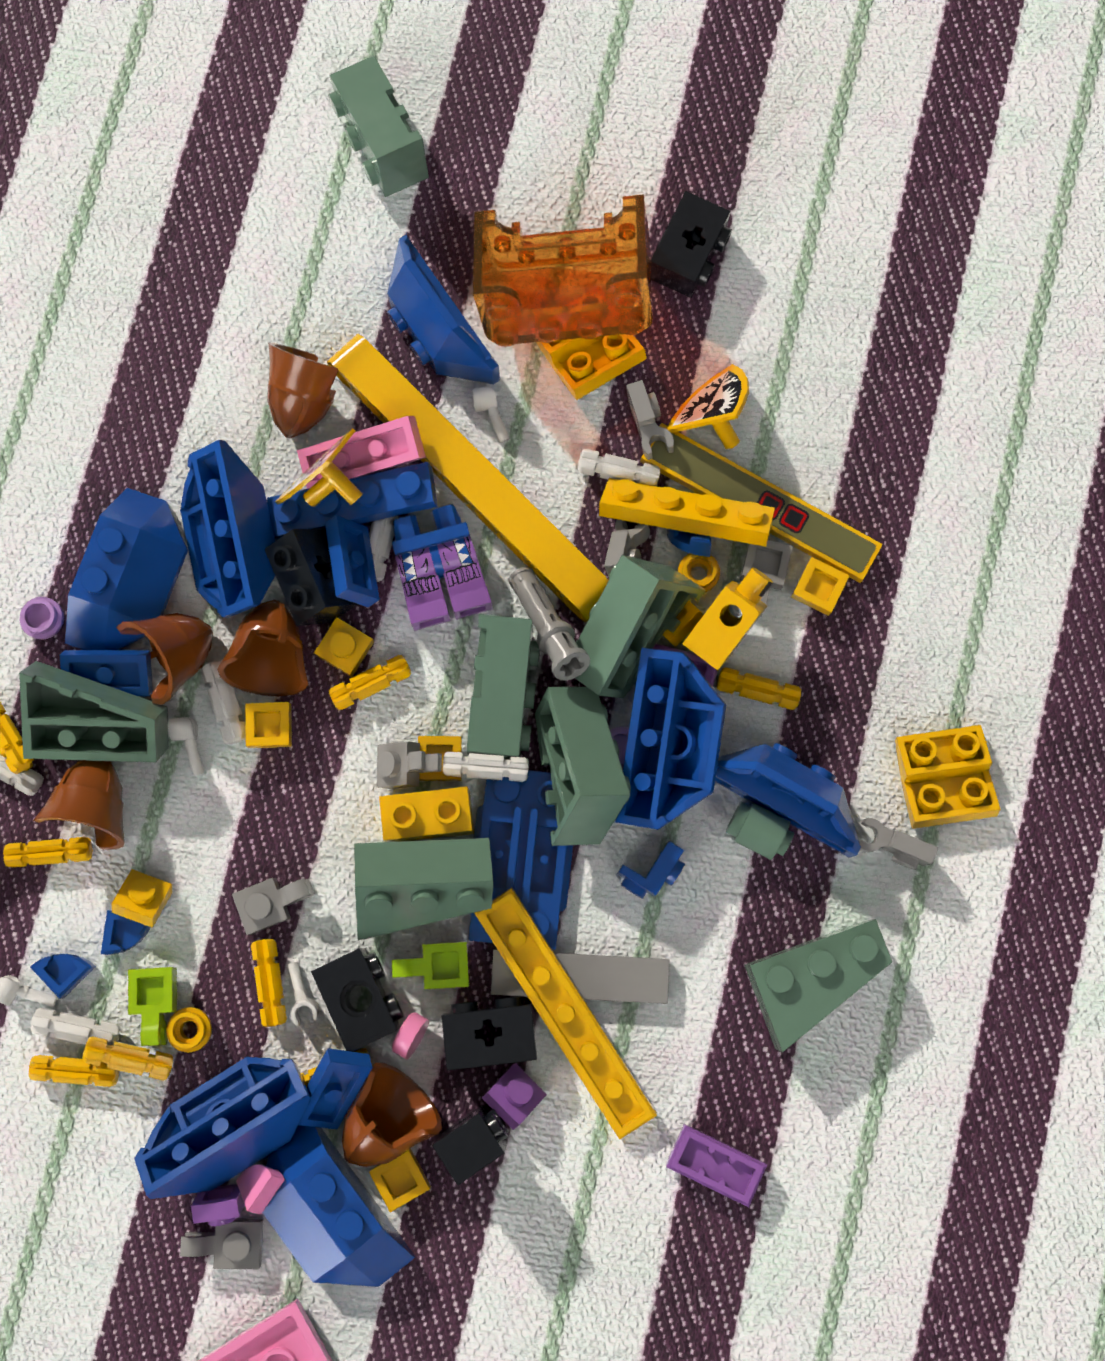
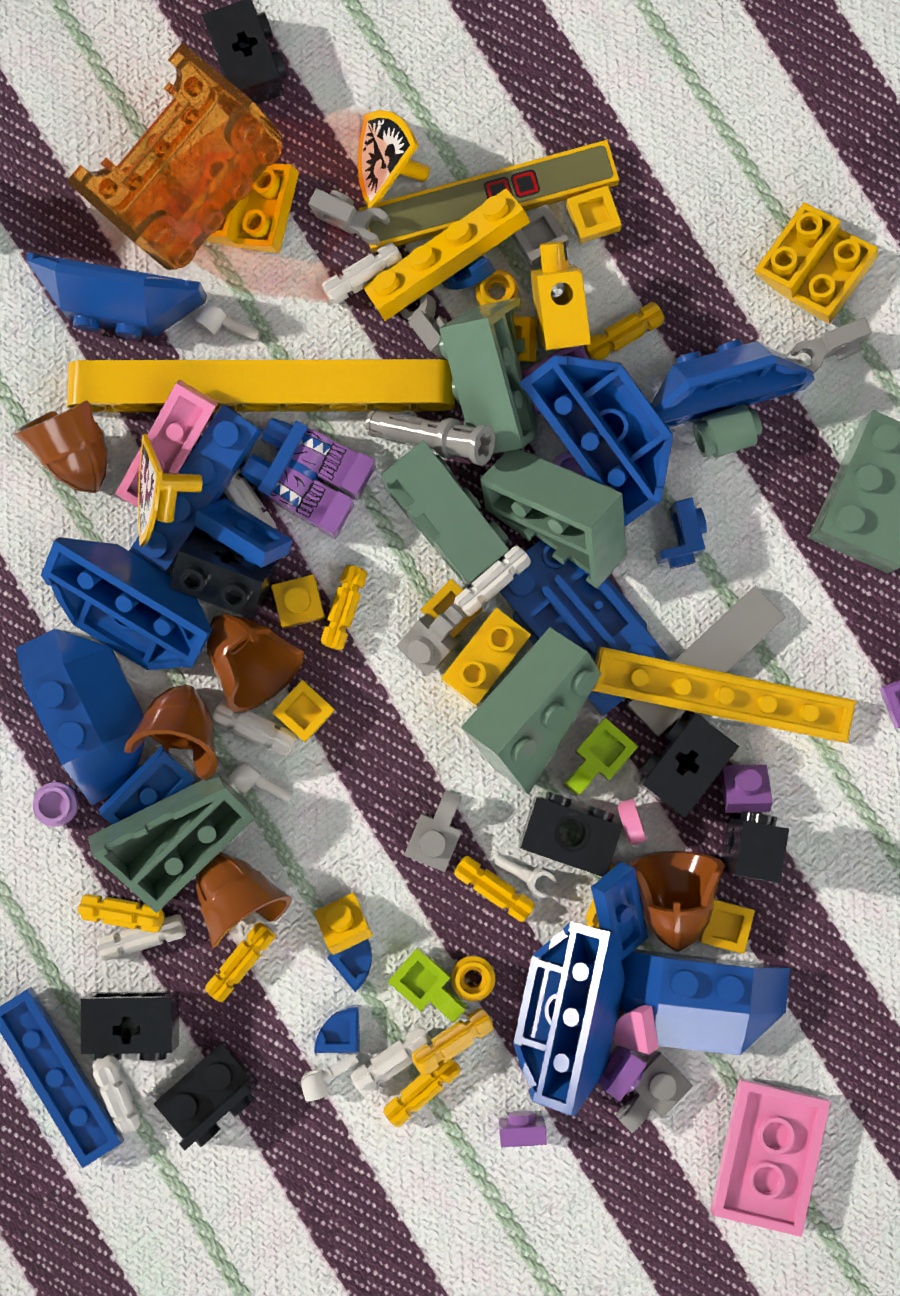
camera: 45 degrees left, 5 degrees up
(109, 1172) = (522, 1129): none -> medium lavender plate

